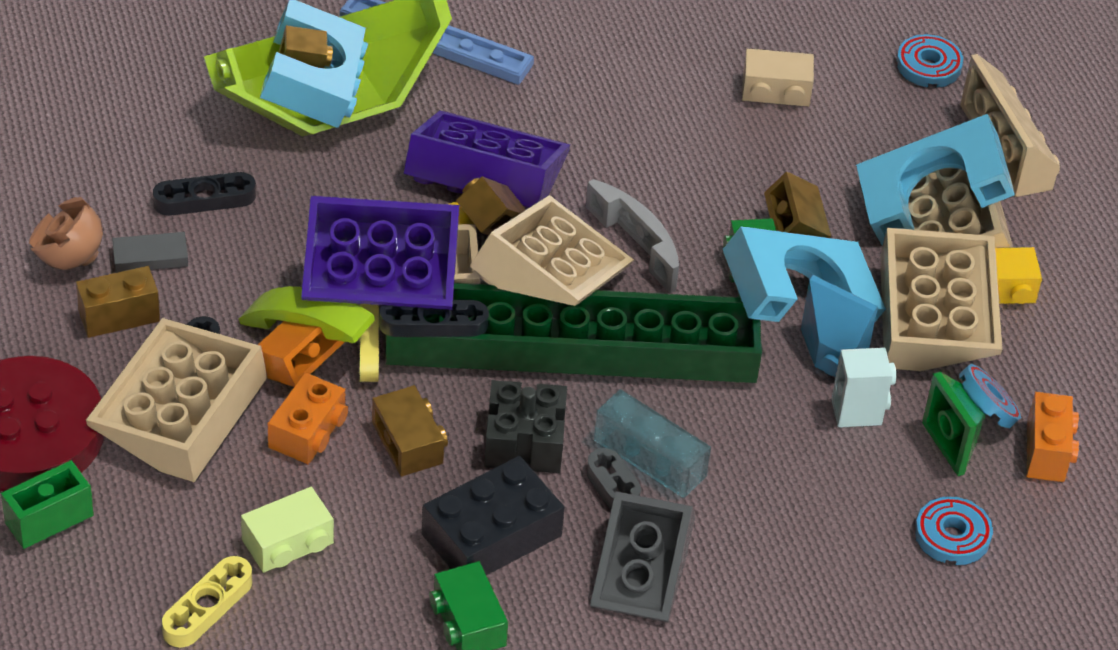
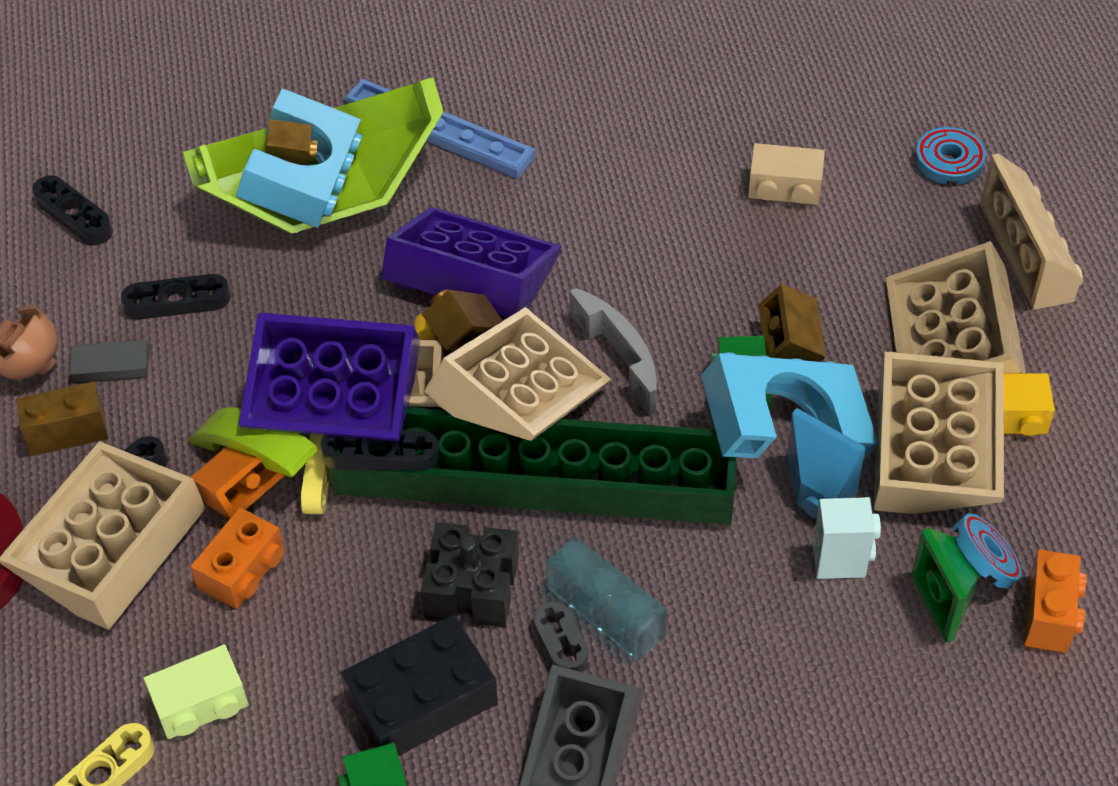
camera: 10 degrees right, 5 degrees up
(92, 128) = (76, 223): none -> black beam
(409, 430) = (345, 576): pearl gold brick -> none
(893, 175) = (897, 288): medium azure arch -> none
(955, 513) = (940, 690): dark azure tile -> none

